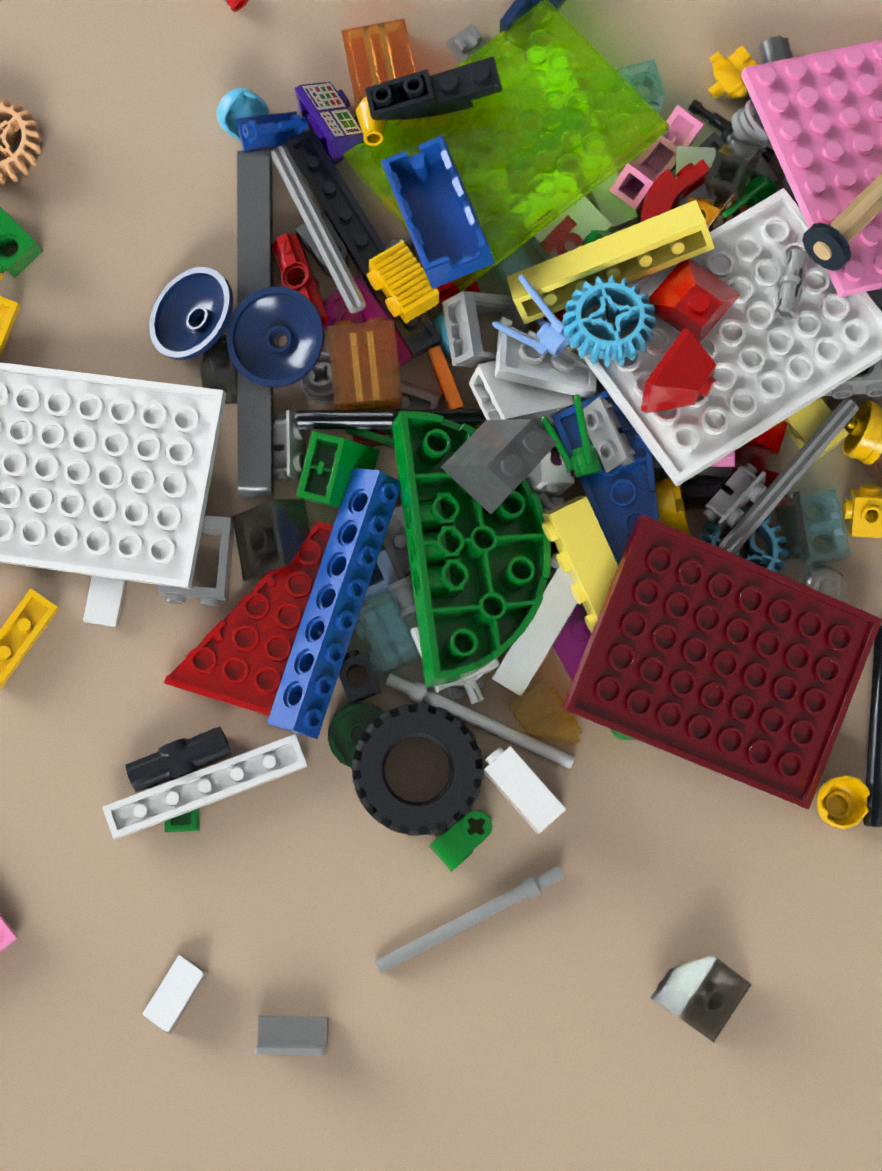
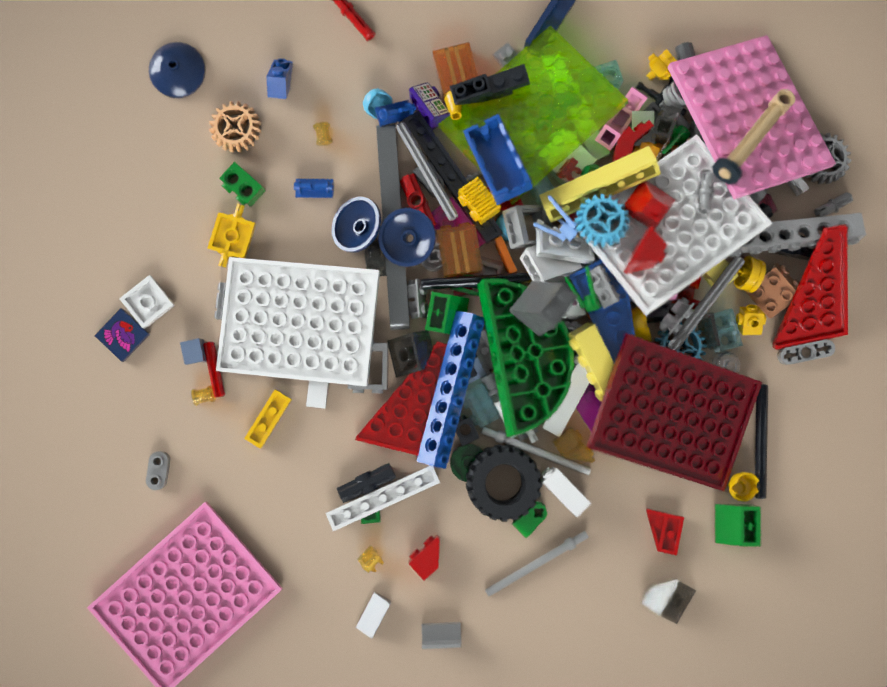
camera: 10 degrees left, 5 degrees up
(78, 65) = (279, 79): none -> blue slope
(124, 251) = (313, 188): none -> blue hinge
(146, 160) = (322, 133): none -> clear yellow bush
(174, 893) = (370, 559): none -> clear yellow tile
(277, 898) = (427, 559): none -> red slope
(701, 873) = (665, 530): none -> red wing
(828, 868) = (738, 524): none -> green slope

